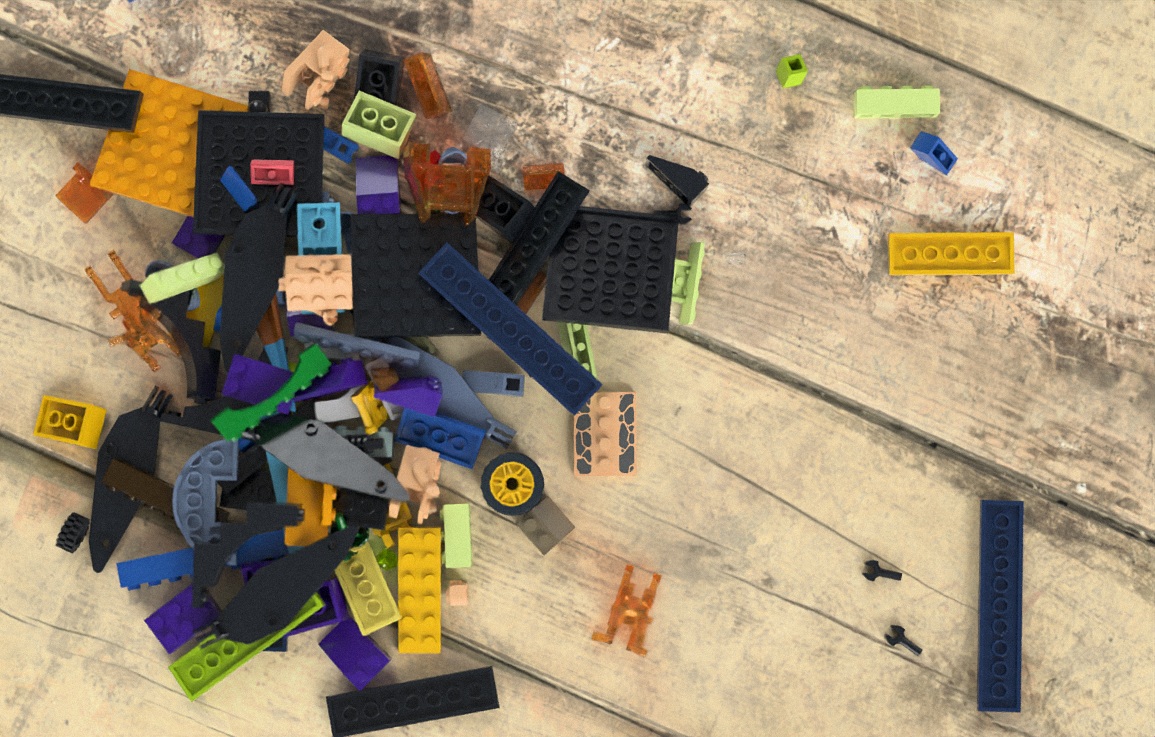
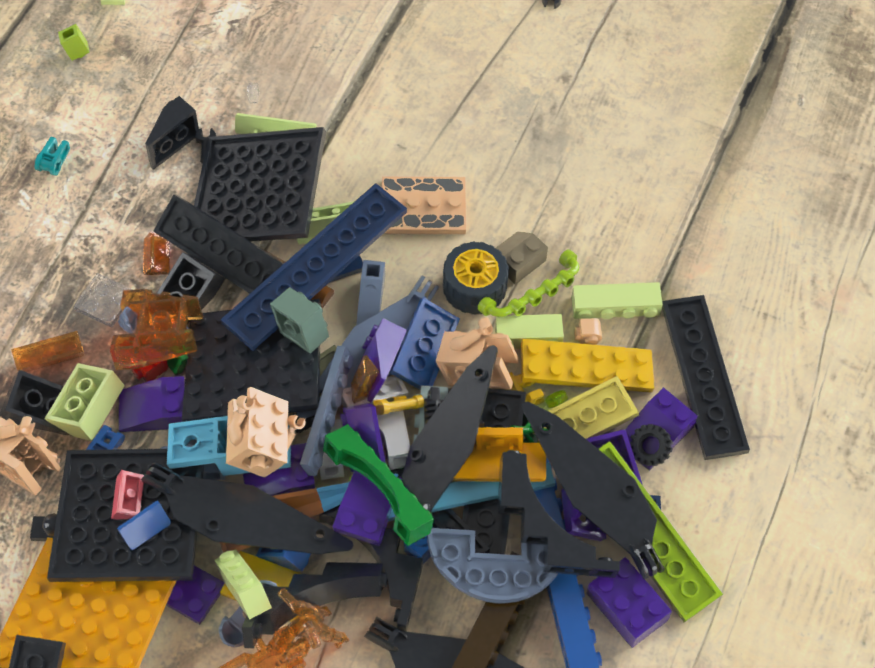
camera: 90 degrees left, 25 degrees down
(322, 642) = (664, 445): none -> black tyre
(438, 315) = (300, 319): none -> sand green brick
(488, 539) = (534, 297): none -> lime bar
(492, 622) = (616, 300): none -> yellowish green brick
(630, 611) = (597, 163): clear orange piece -> none
(648, 69) = (52, 156): none -> teal piece

